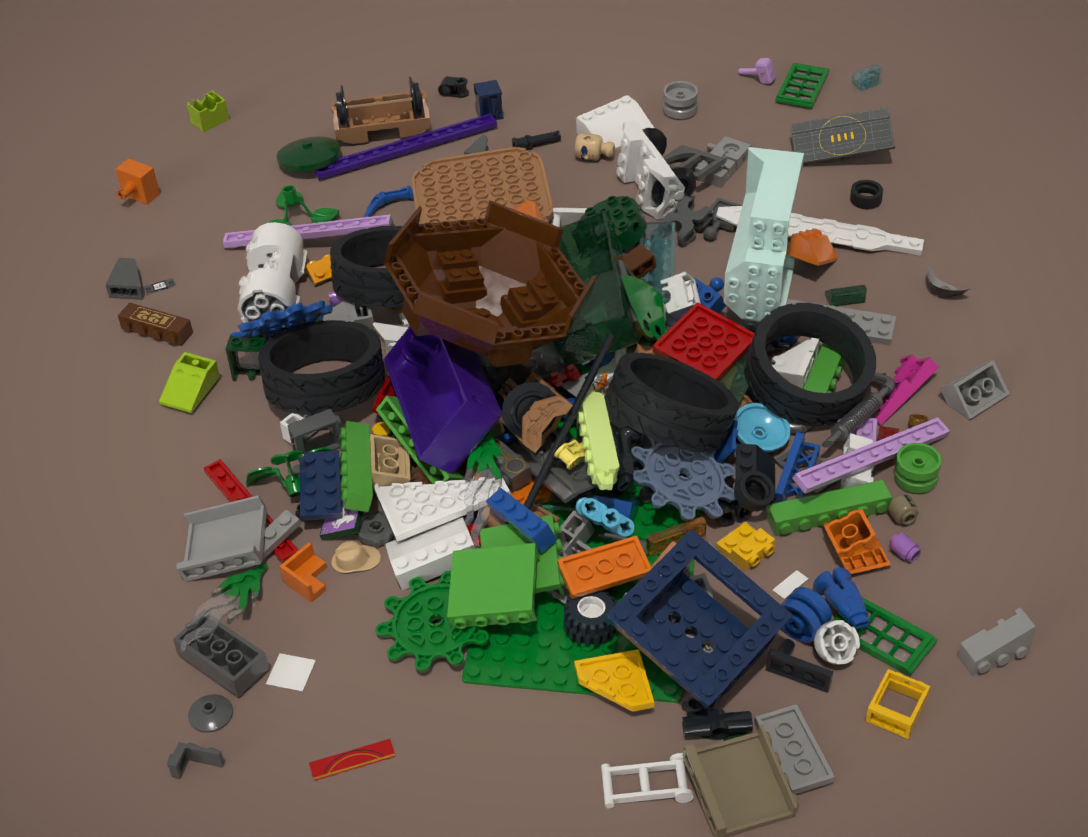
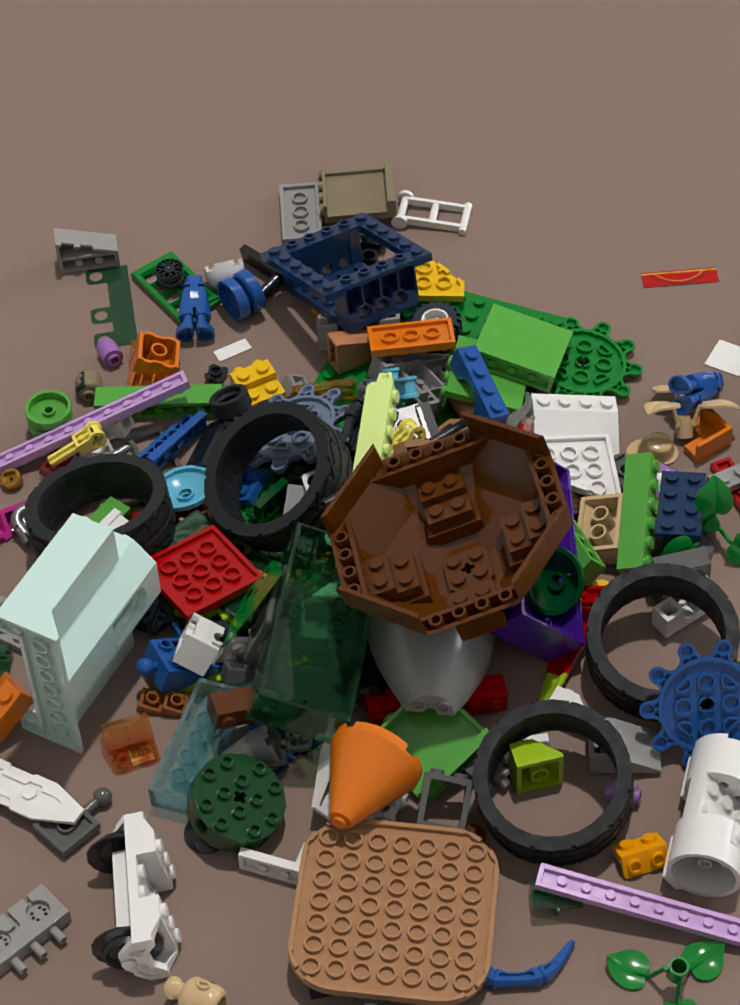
camera: 165 degrees left, 5 degrees up
(294, 573) = (684, 423): none -> tan plant
(316, 599) = (696, 389): none -> blue piece
(413, 382) = (547, 594): none -> dark green dish
(688, 220) = (114, 807): dark grey piece -> none
(696, 155) = (65, 961): dark grey window -> none
(708, 262) = (130, 742): none -> clear orange slope
(791, 550) = (216, 374): none -> black plate
(866, 434) = (83, 442): none -> light yellow connector
(891, 631) = (170, 275): none -> black wheel
(892, 720) = (198, 210): yellow window -> none
(927, 606) = (121, 305): none -> clear green piece

